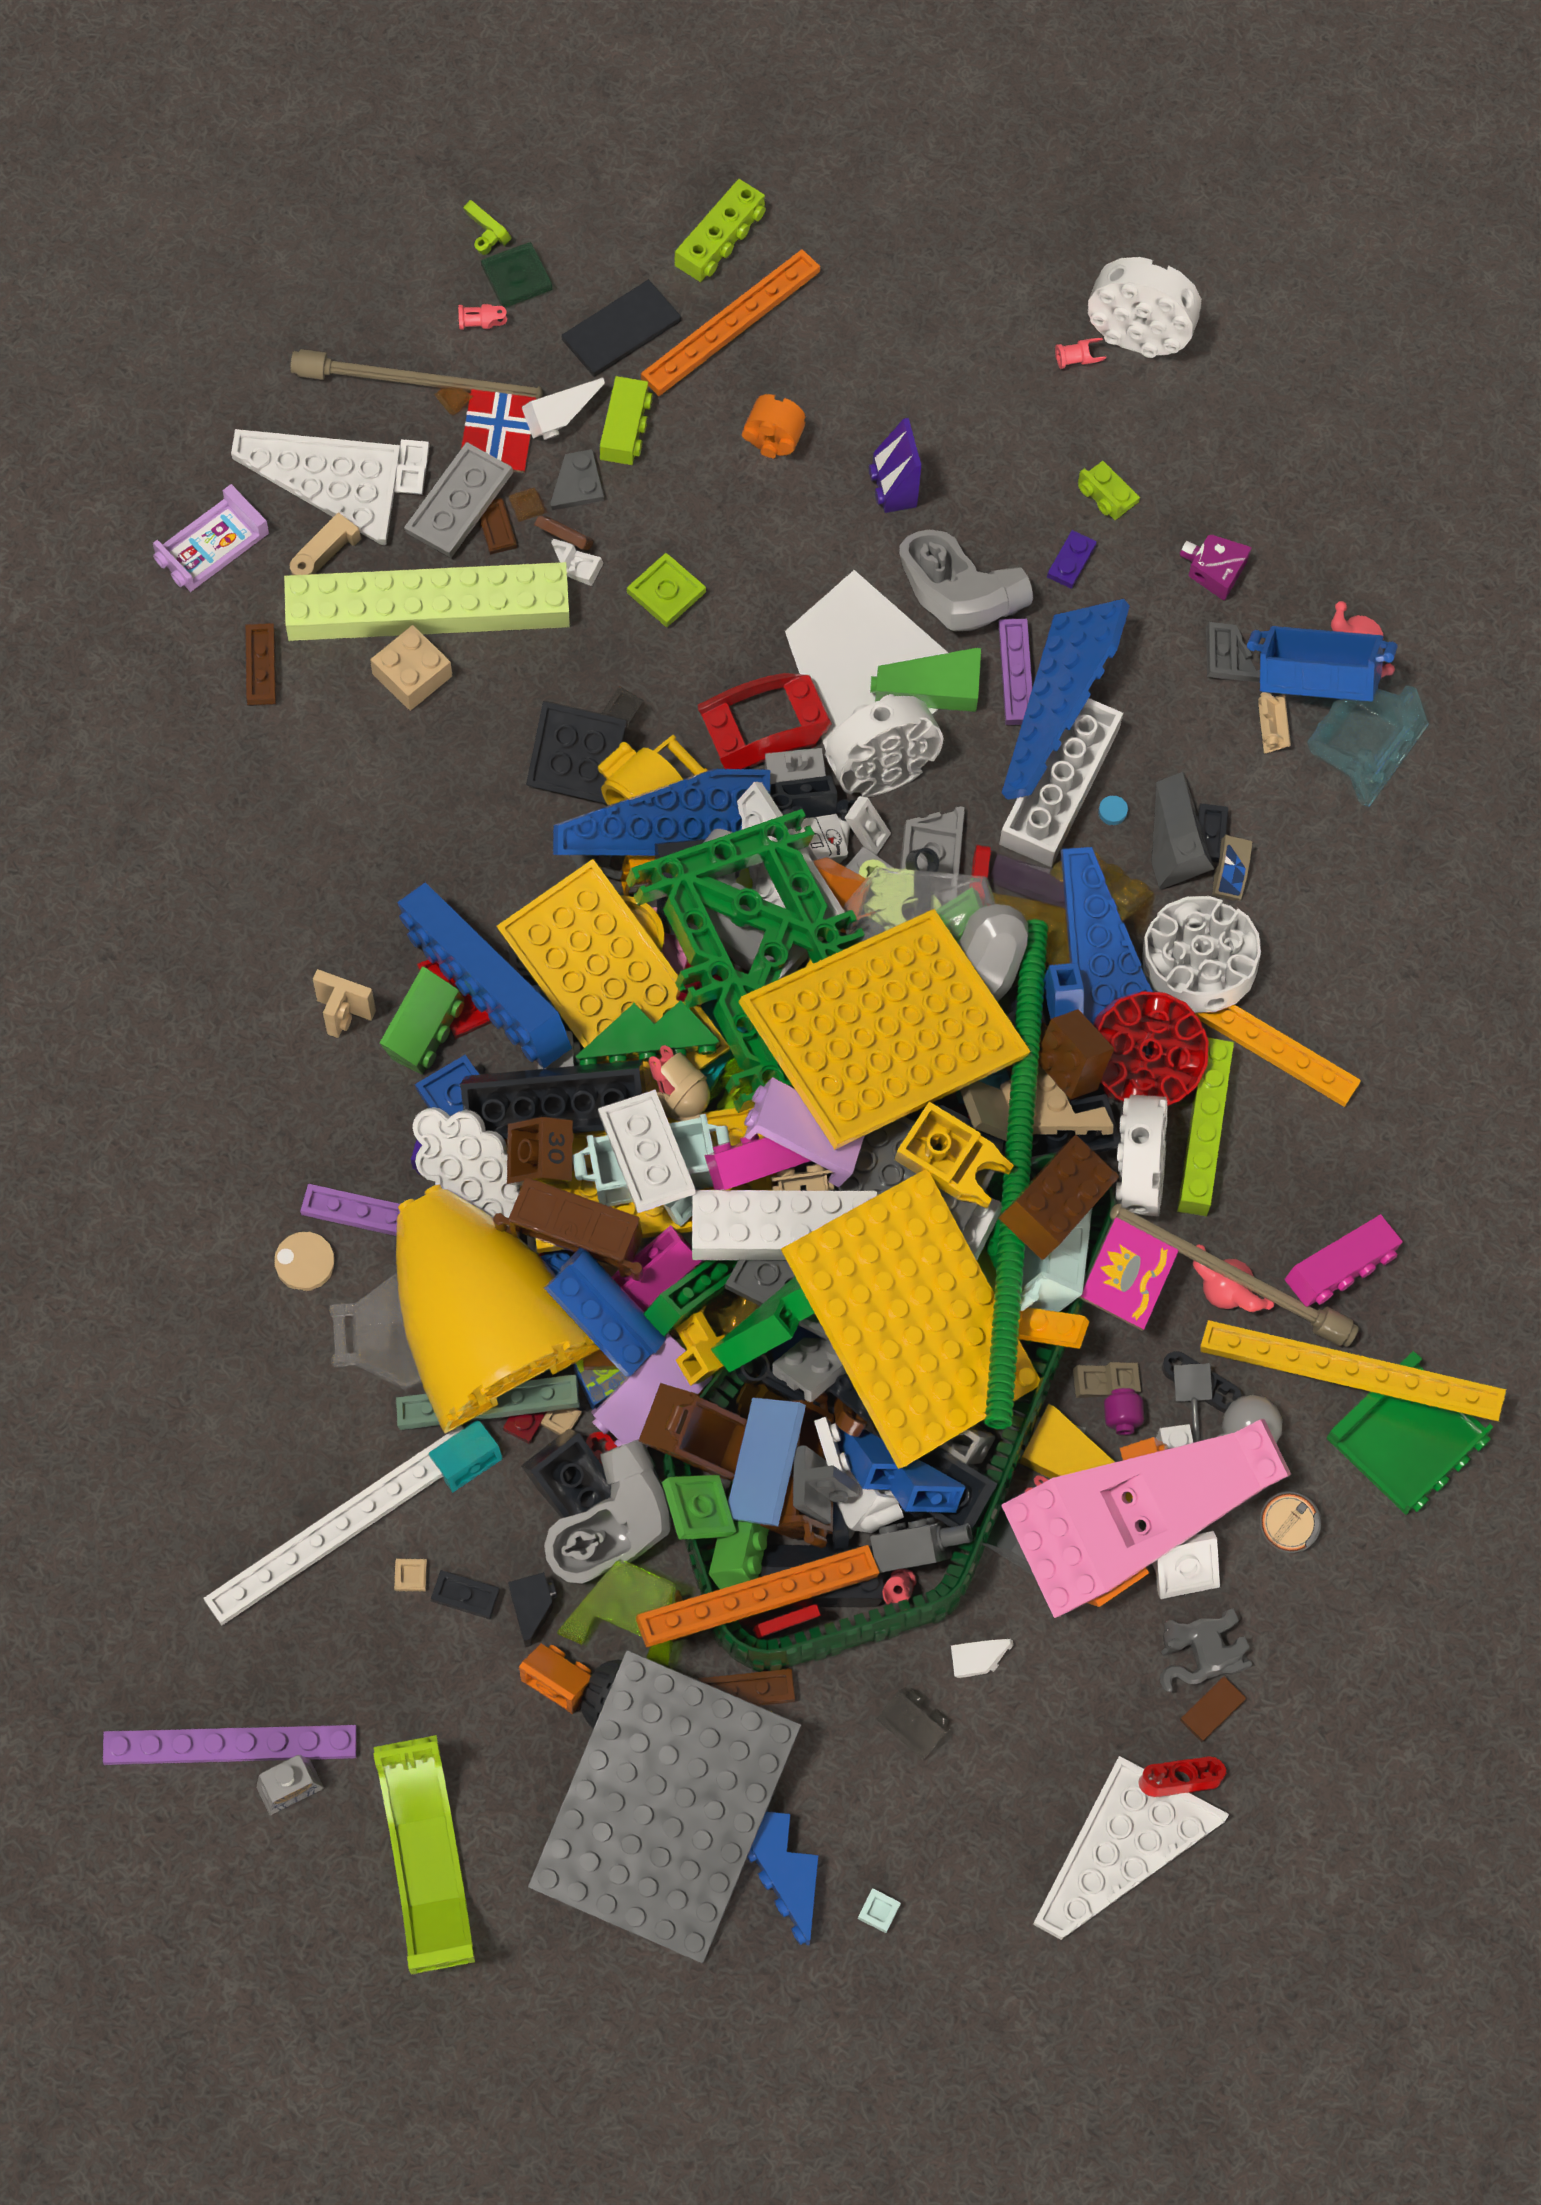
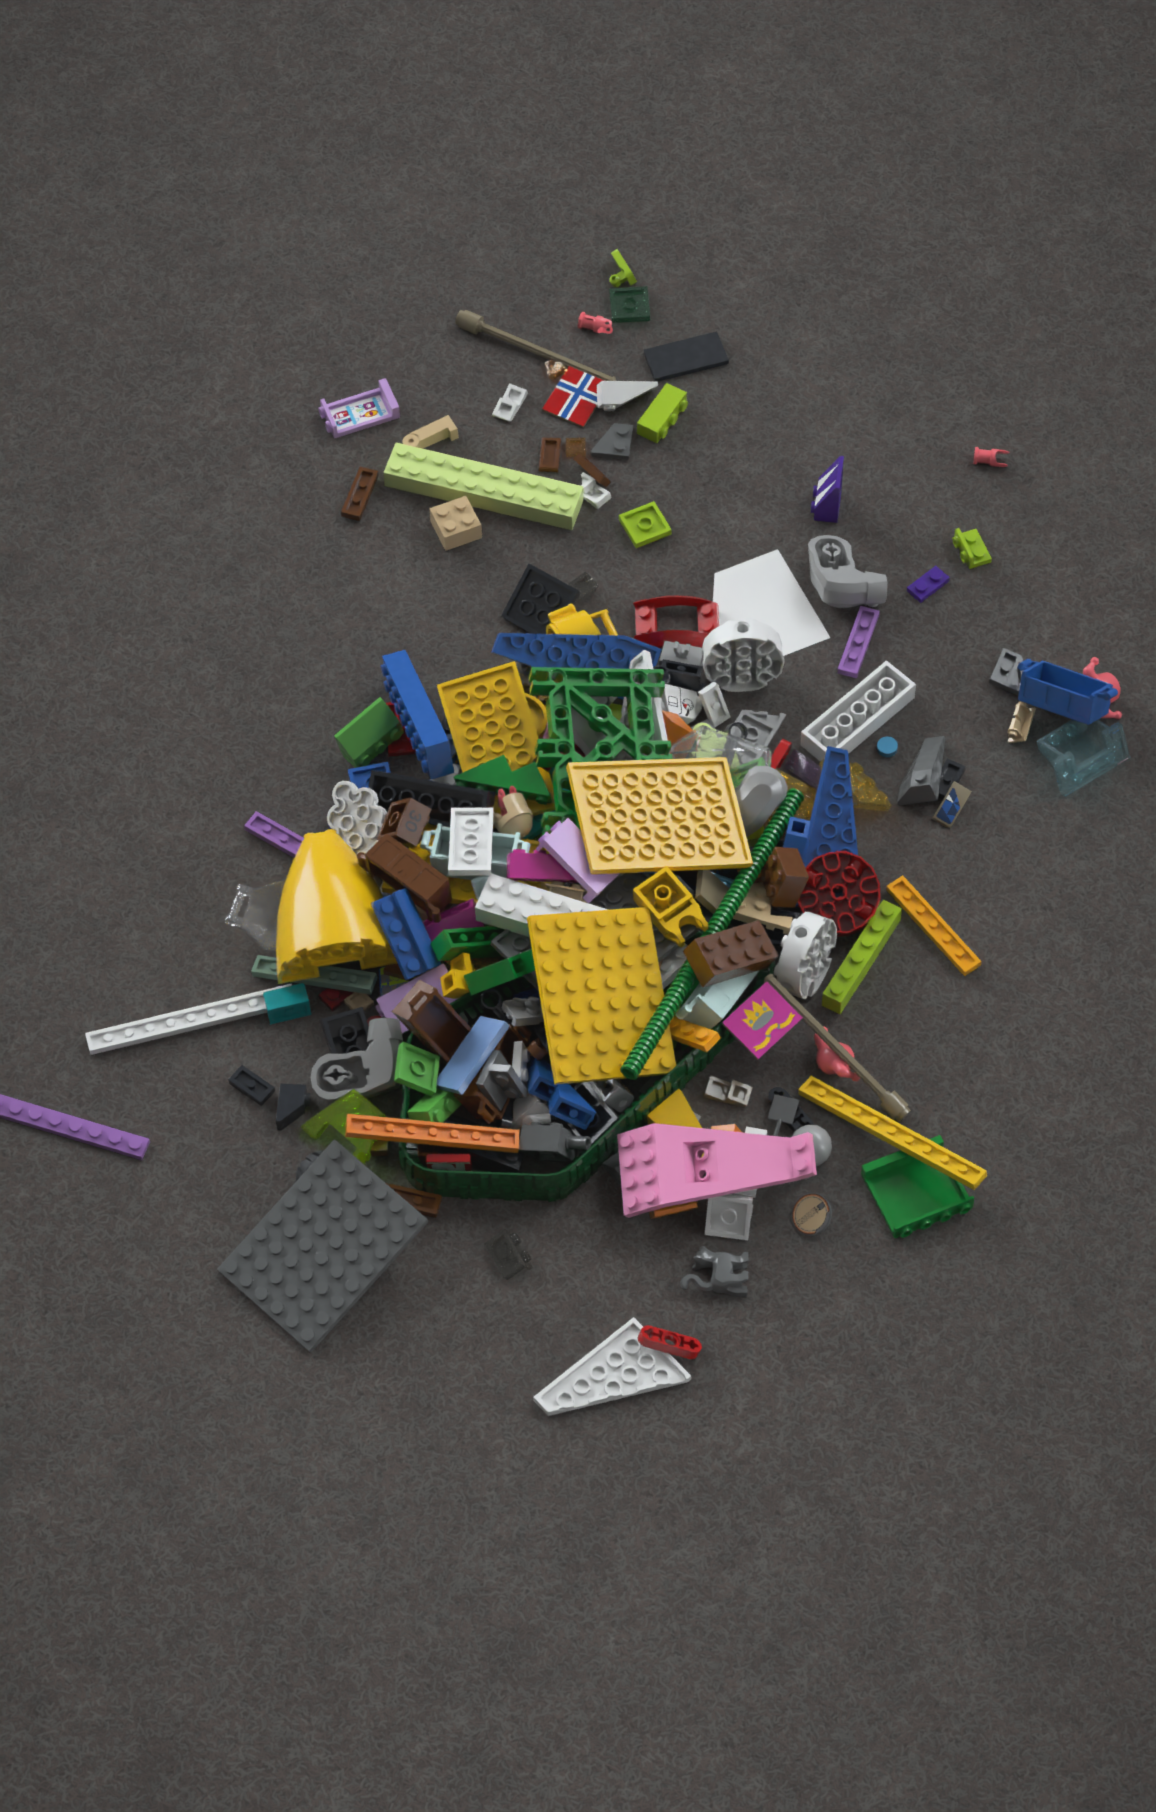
camera: 25 degrees right, 10 degrees down
(288, 1783) = (92, 1156): light grey torso -> none
(304, 1261) = (234, 857): tan tile -> none
(328, 474) = (452, 391): white wing -> none
(342, 999) = (323, 708): tan bracket -> none
(410, 1574) = (222, 1063): tan tile -> none
(425, 1854) = (161, 1218): lime panel -> none
(458, 499) = (531, 430): light grey plate -> none
(555, 1676) = (285, 1148): orange slope -> none
(720, 230) = (777, 314): lime brick -> none
(730, 322) = (760, 373): orange plate -> none
(774, 426) = (759, 443): orange brick -> none
(787, 1873) = (386, 1314): blue slope -> none
(879, 1910) = (436, 1357): light aqua plate -> none
(905, 1580) = (534, 1166): coral piece -> none
(939, 680) = (802, 631): bright green slope -> none
(978, 1657) = (568, 1229): white slope -> none
(1069, 664) = (880, 656): blue wing -> none
(1124, 1411) = (729, 1111): magenta head -> none
(1144, 306) = (1040, 436): white brick -> none
(1201, 953) = (904, 849): white brick -> none
(1213, 1709) = (710, 1312): reddish brown tile -> none
(1216, 563) = (1026, 614): magenta torso -> none
(1343, 1261) = (917, 1065): dark pink brick -> none

